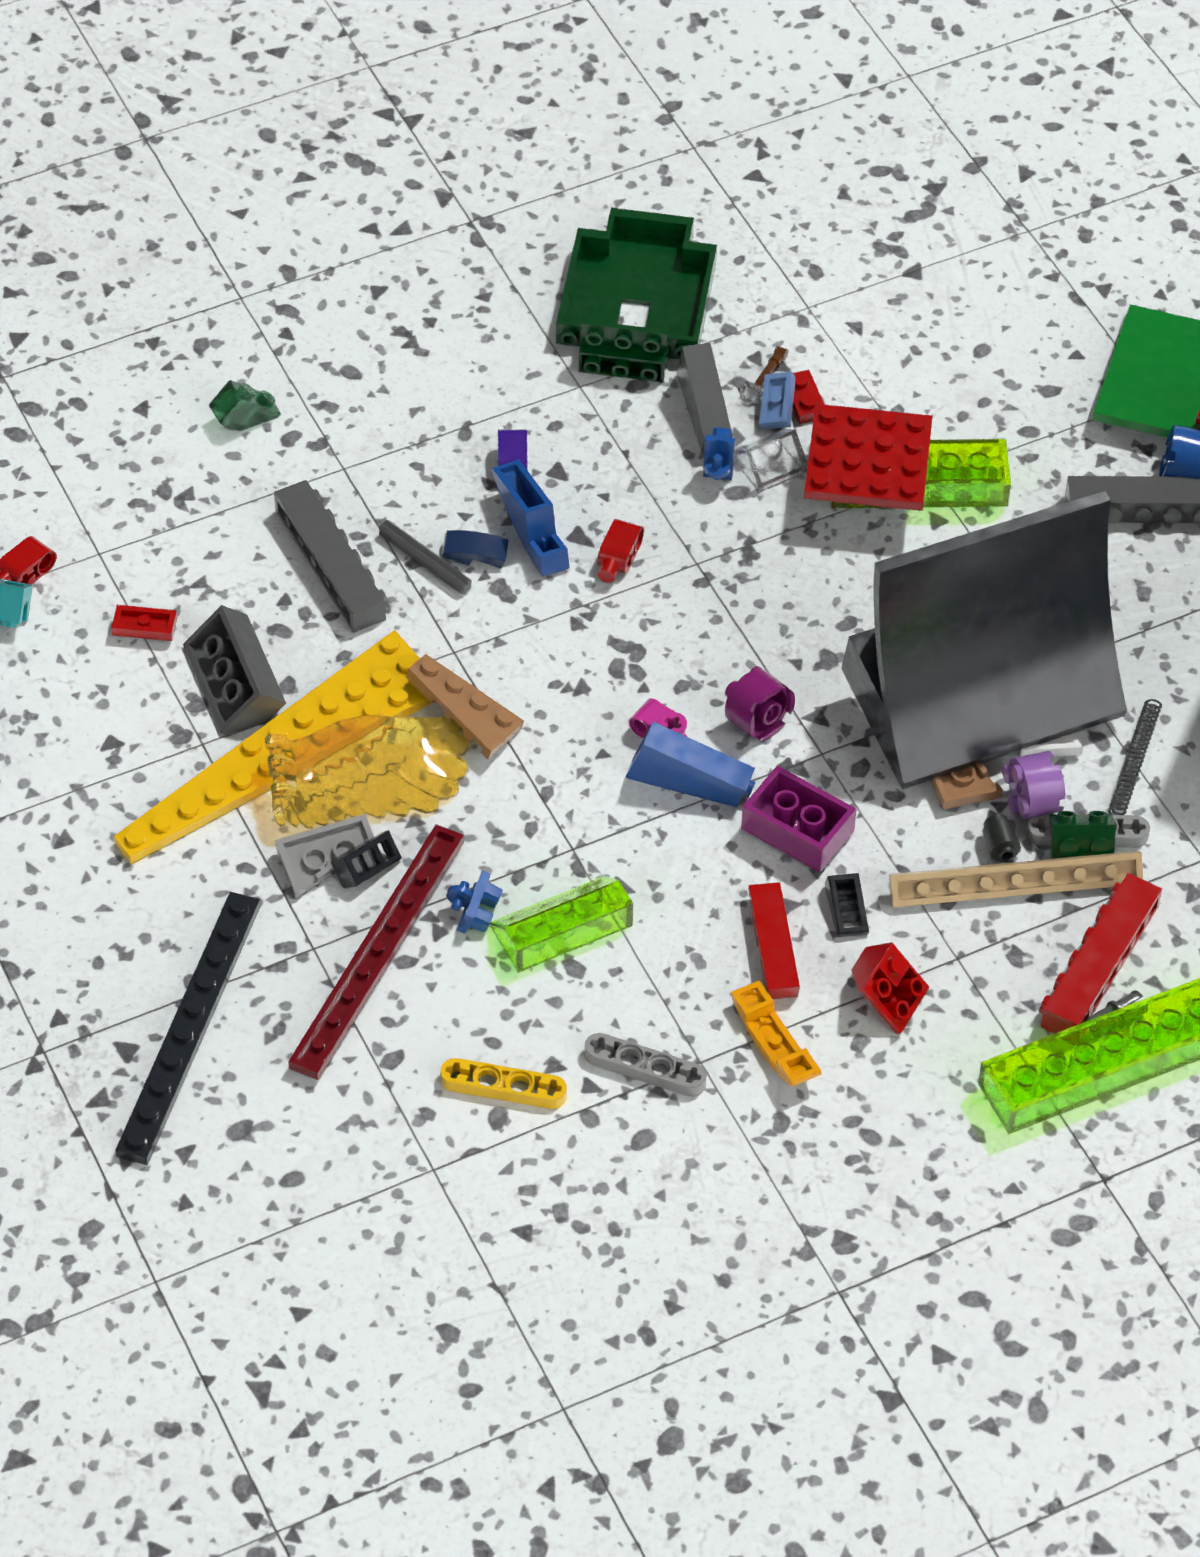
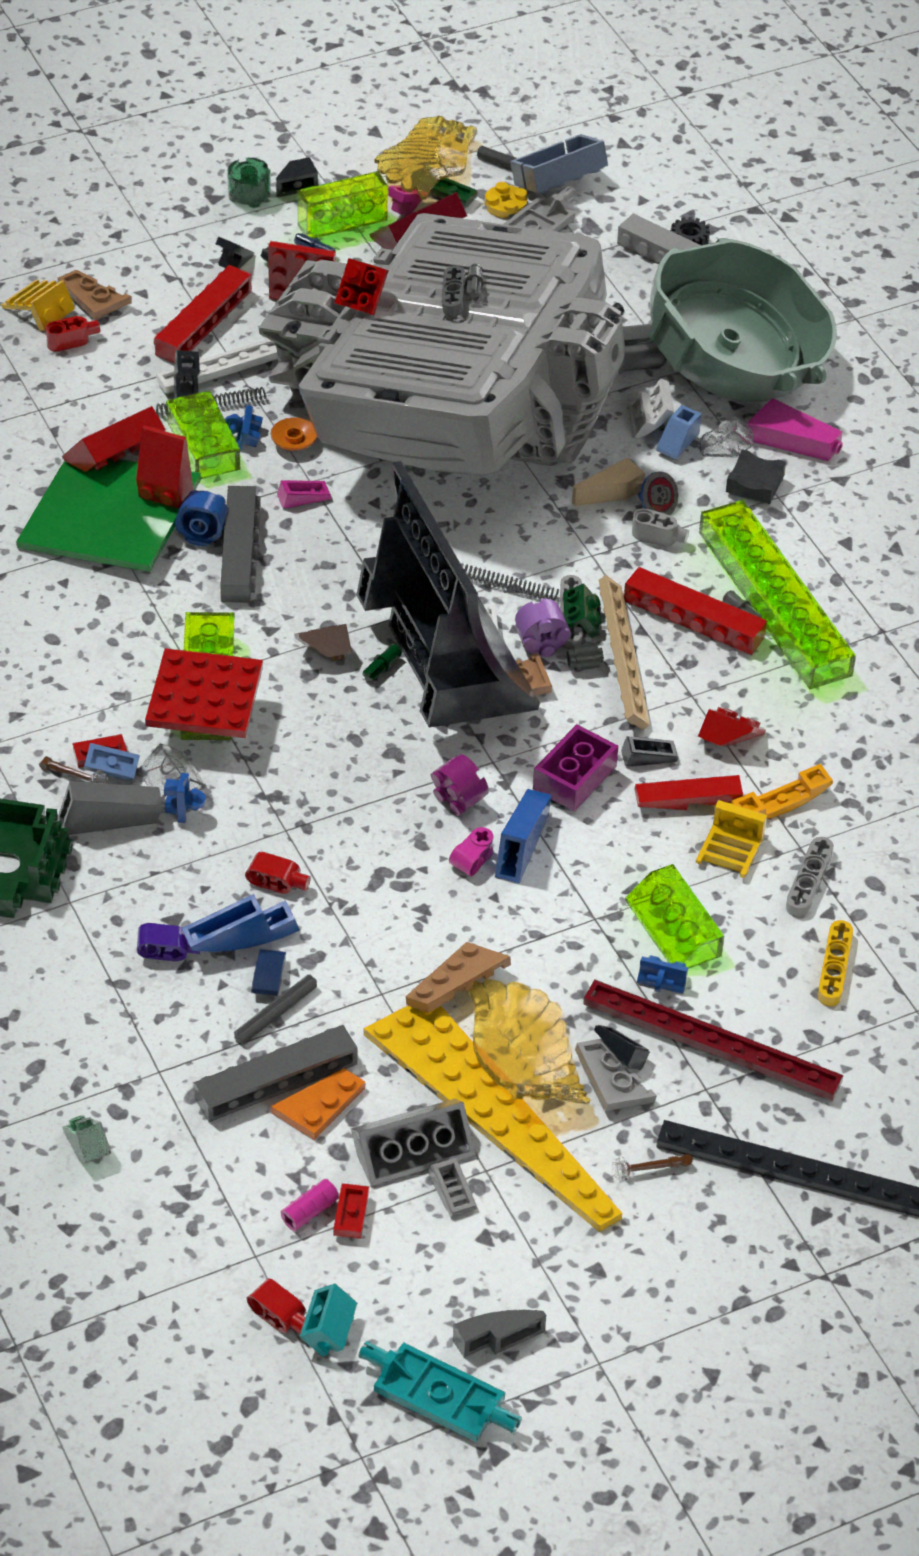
camera: 90 degrees left, 5 degrees down
(152, 586) = (309, 1204): none -> dark pink axle
(177, 718) = (452, 1167): none -> light grey slope
(190, 856) = (621, 1168): none -> reddish brown piece
(295, 598) = (320, 1103): none -> orange wing
(712, 990) = (737, 828): none -> yellow plate

